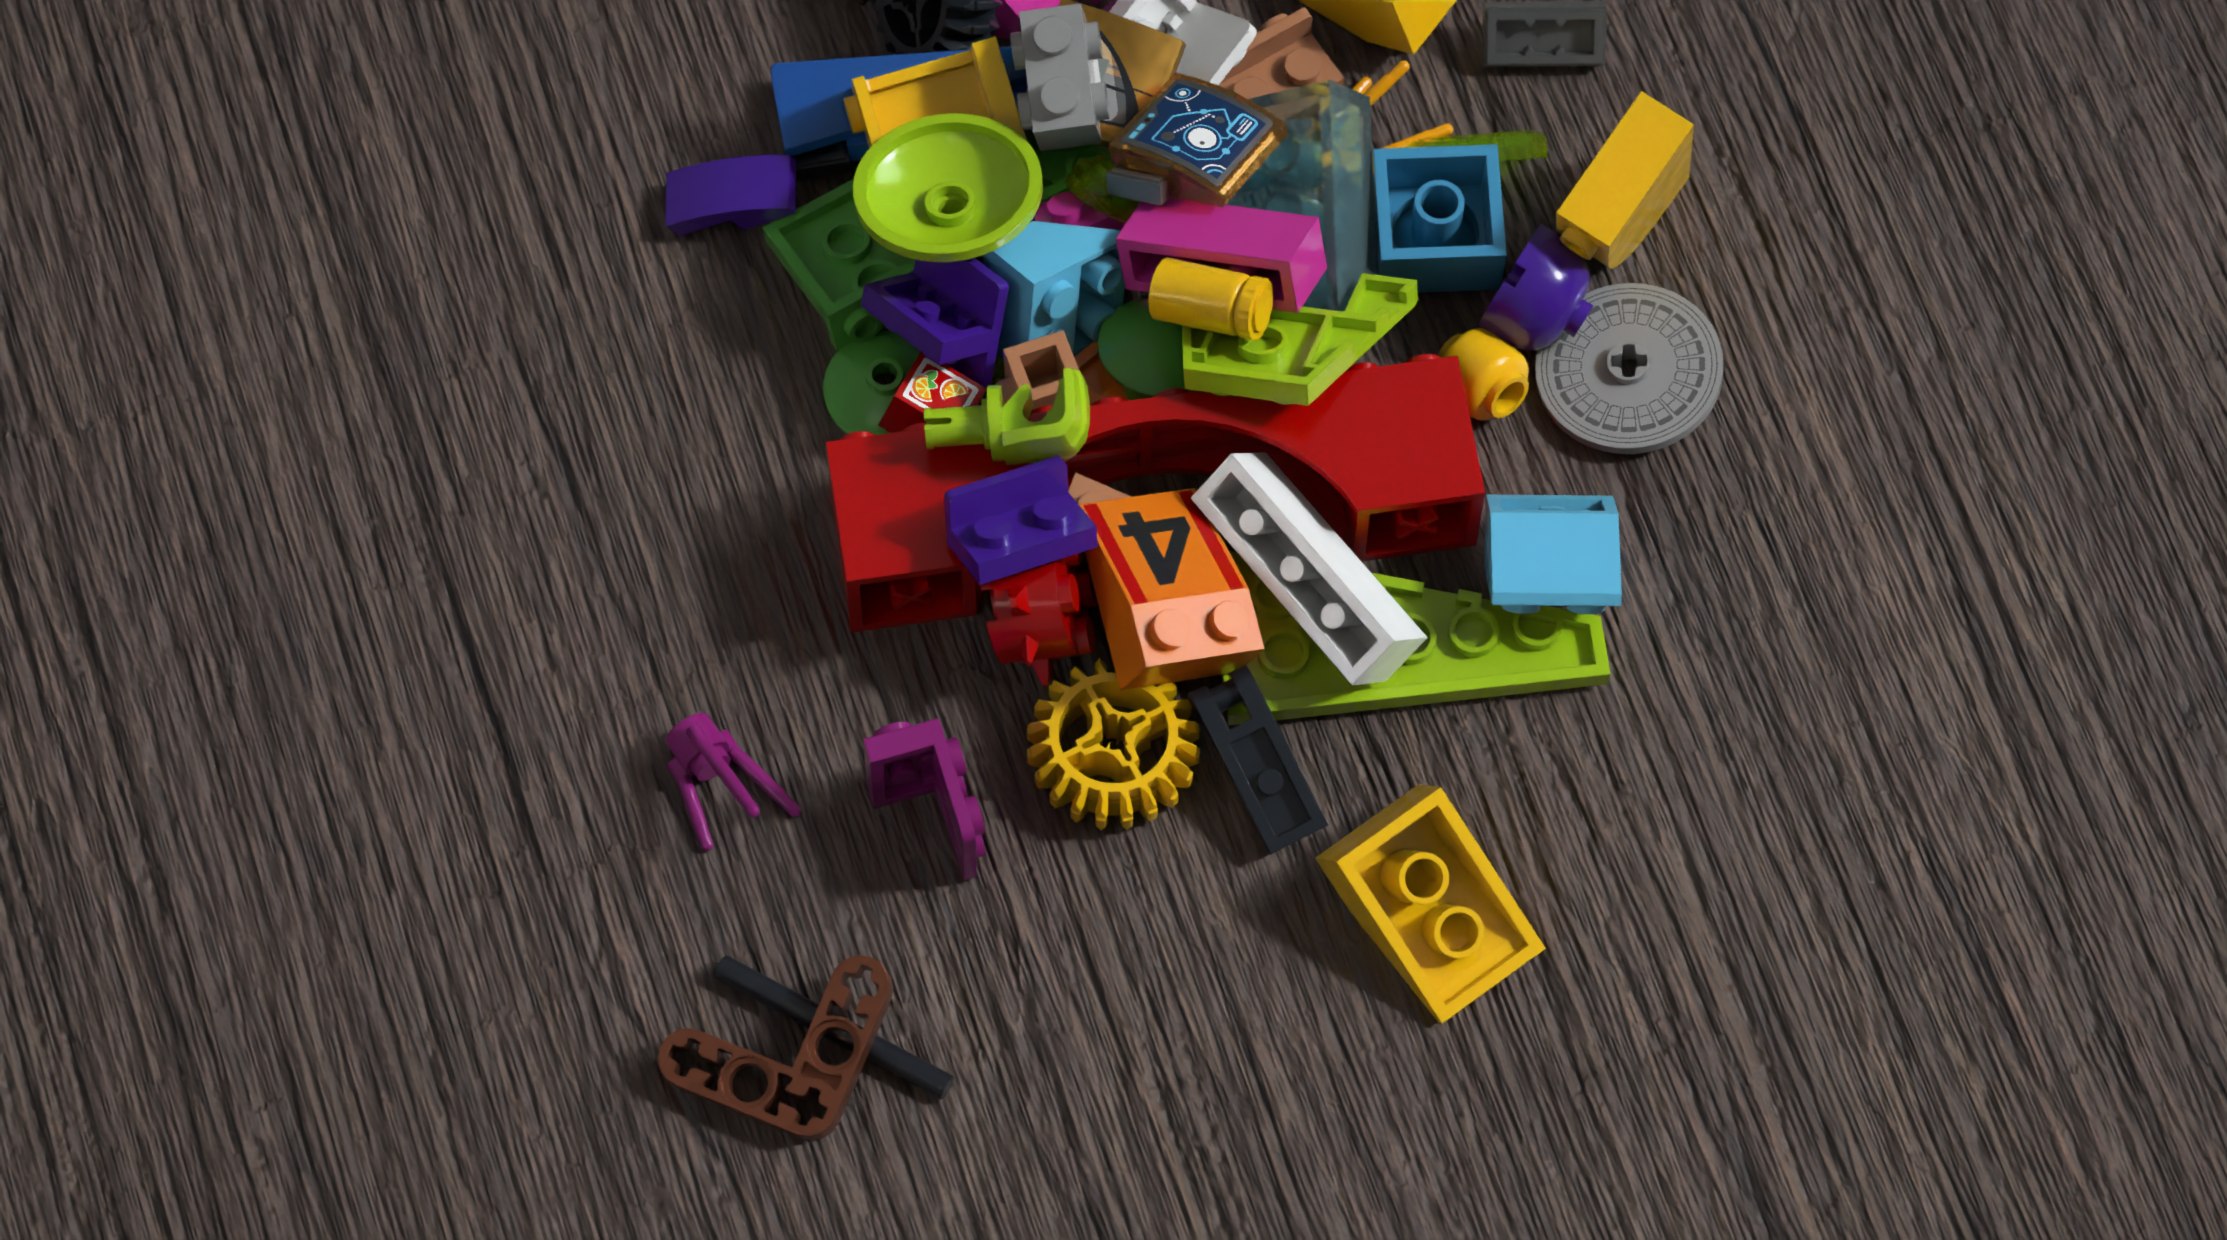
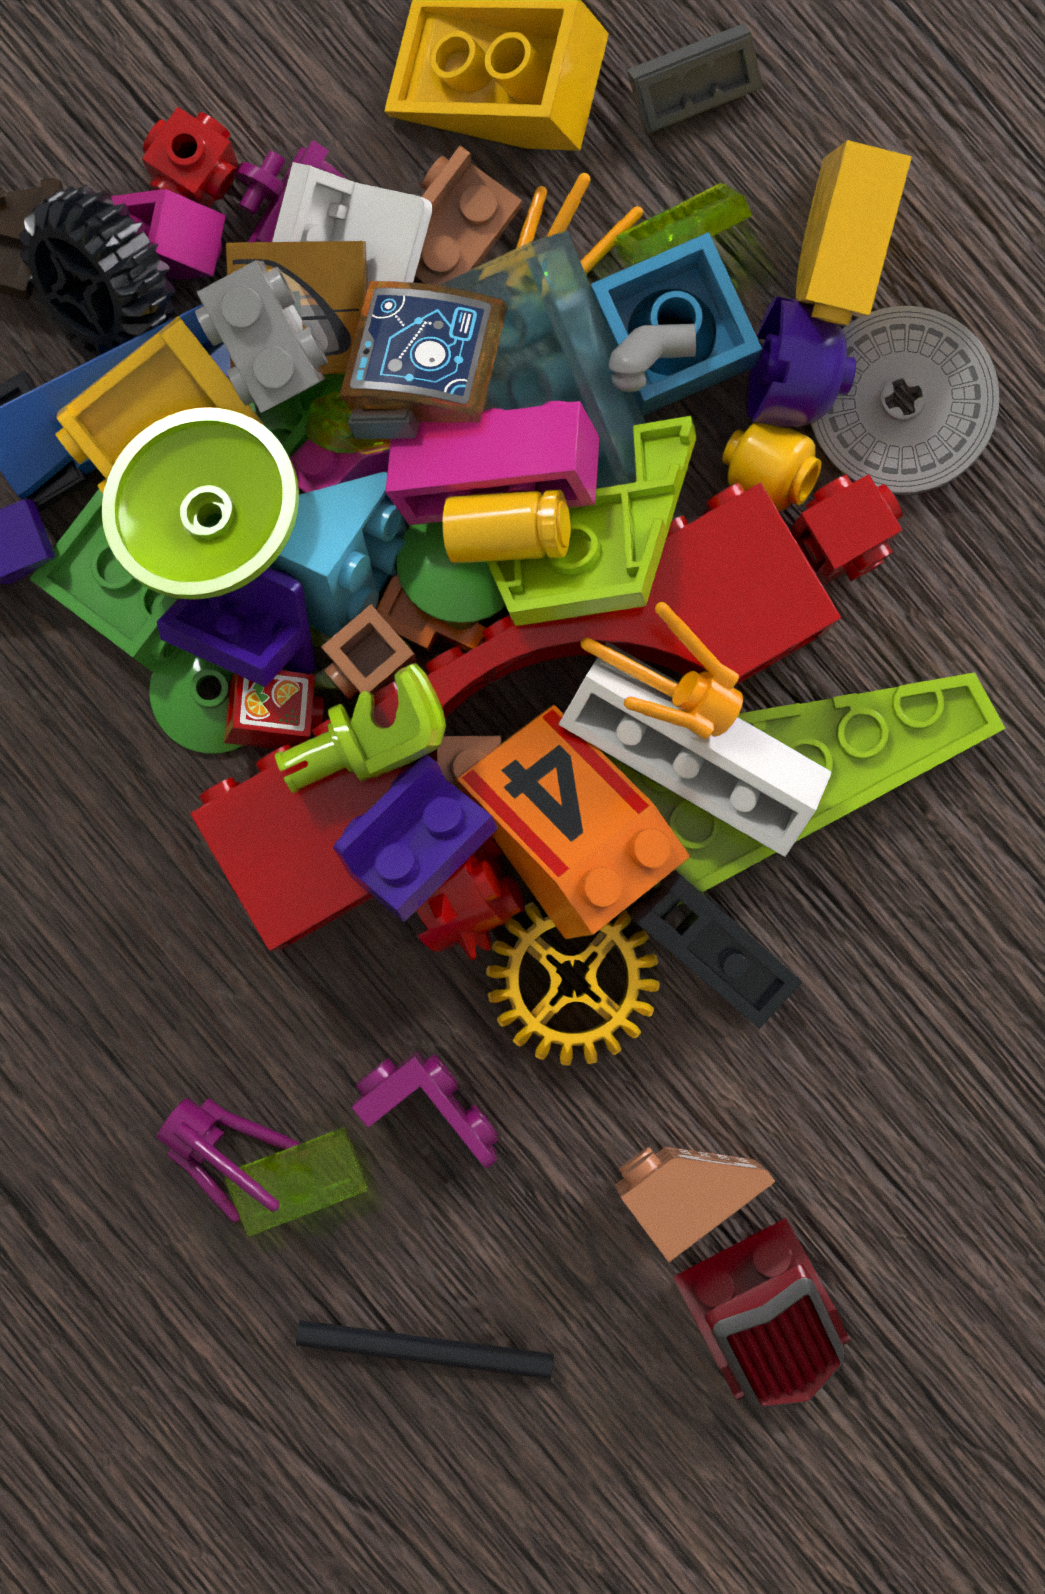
camera: 25 degrees left, 20 degrees up
(783, 832) = (301, 1180): none -> clear neon green plate
(808, 1072) = (424, 1410): copper beam -> none
(1144, 955) = (687, 1193): none -> nougat slope
(1171, 1114) = (766, 1318): none -> dark red piece
(1326, 511) = (705, 700): none -> light orange plant
(1400, 210) = (644, 347): none -> light grey arm
(1431, 900) = (921, 1016): yellow slope -> none
(1526, 440) = (848, 528): none -> red brick
(1552, 552) = (914, 635): medium azure slope -> none

